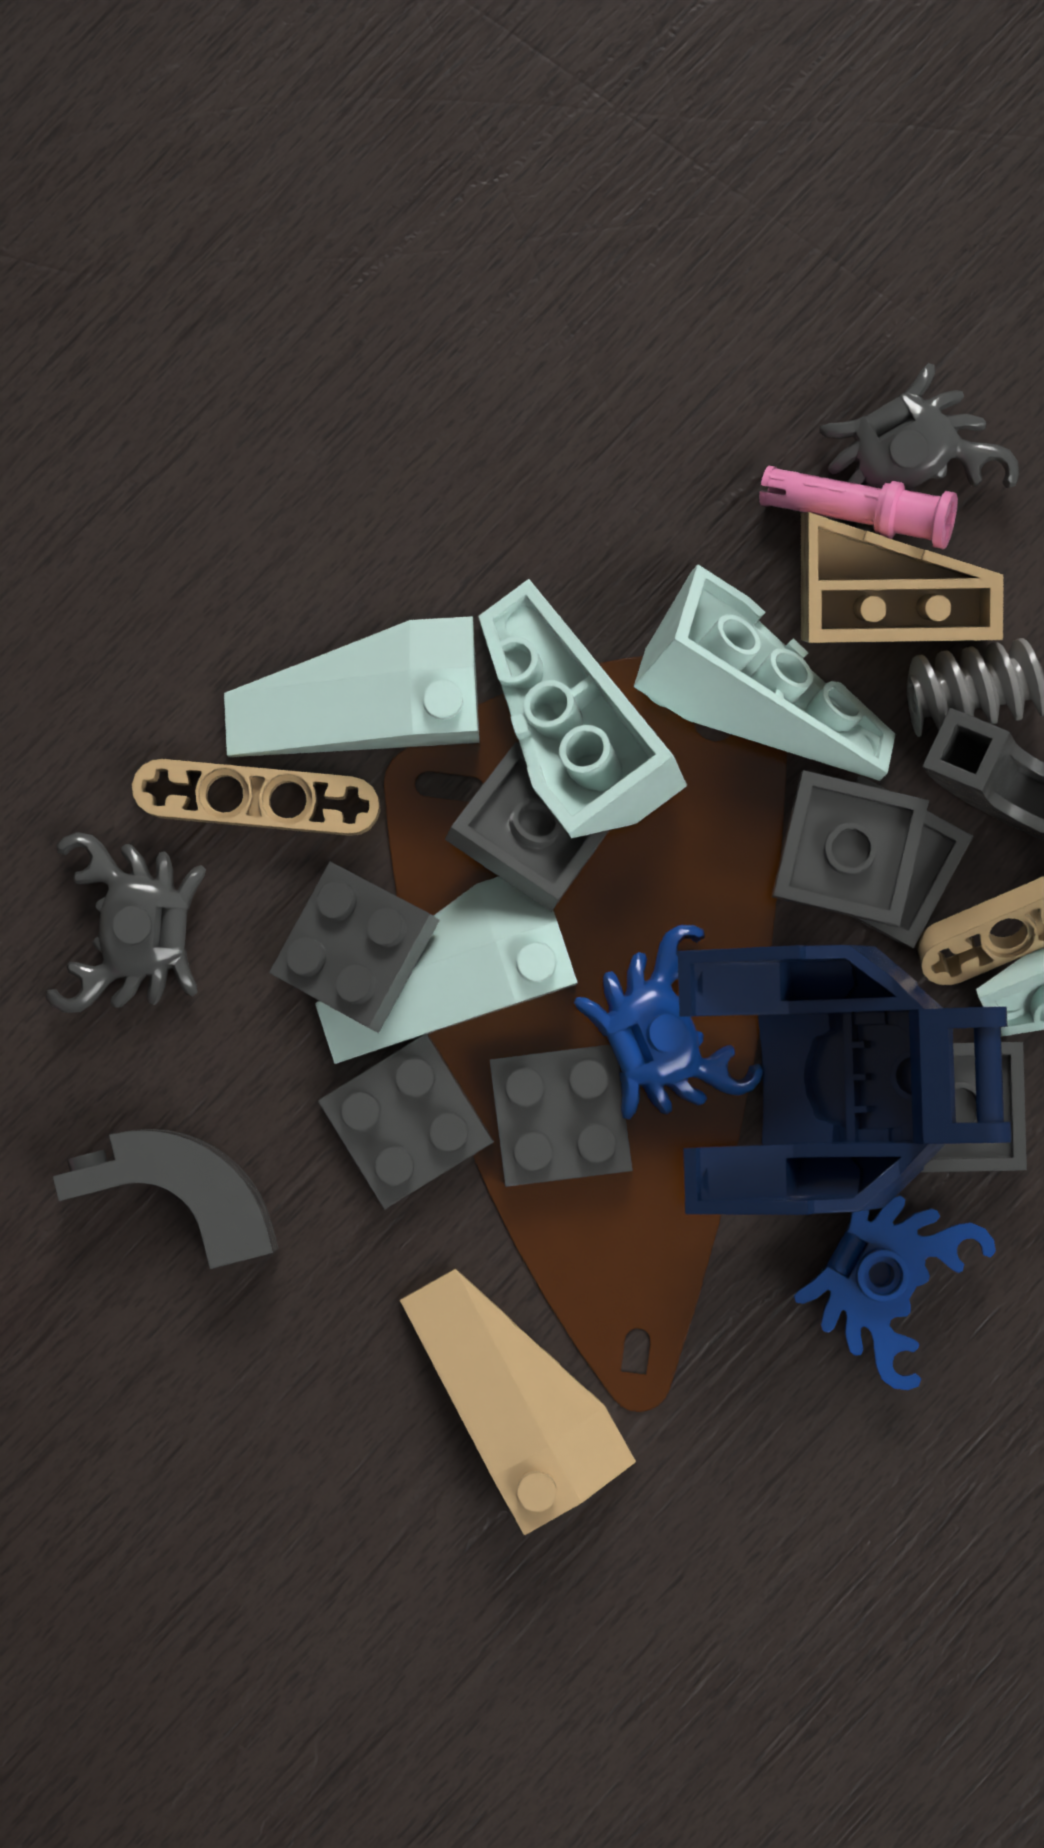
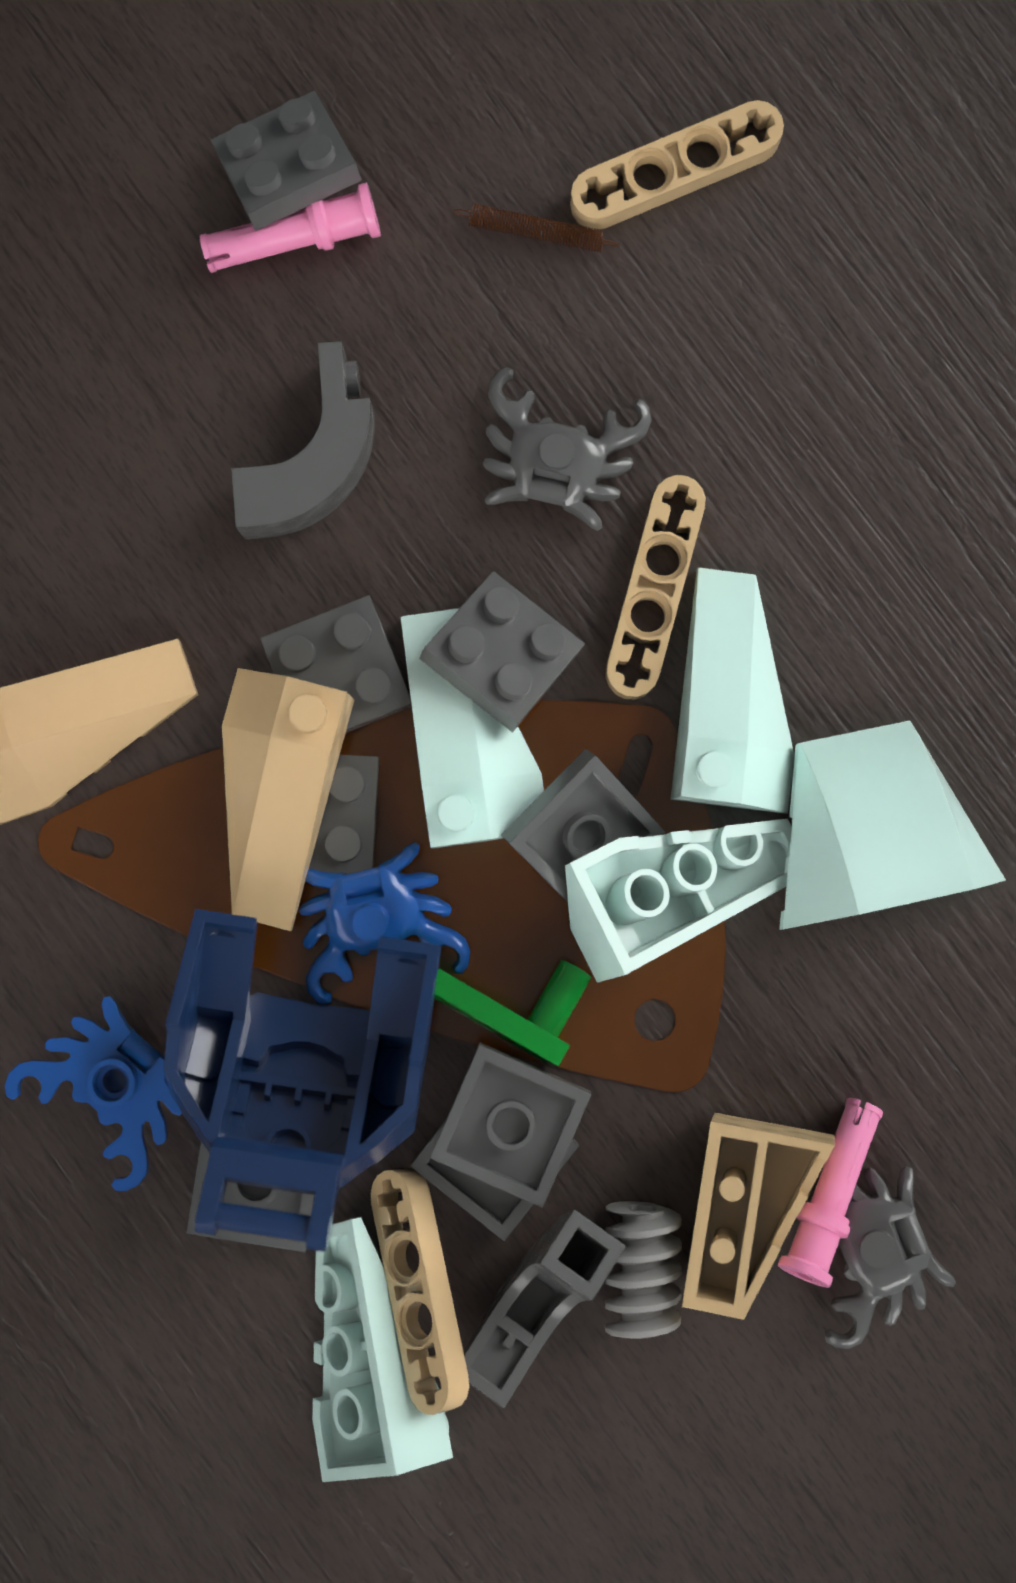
camera: 100 degrees right, 0 degrees up
(473, 521) = (875, 828): none -> light aqua wedge
(529, 1160) = (278, 775): none -> tan wedge
(735, 676) = (691, 1046): light aqua wedge -> none
(752, 838) = (533, 1035): none -> green piece

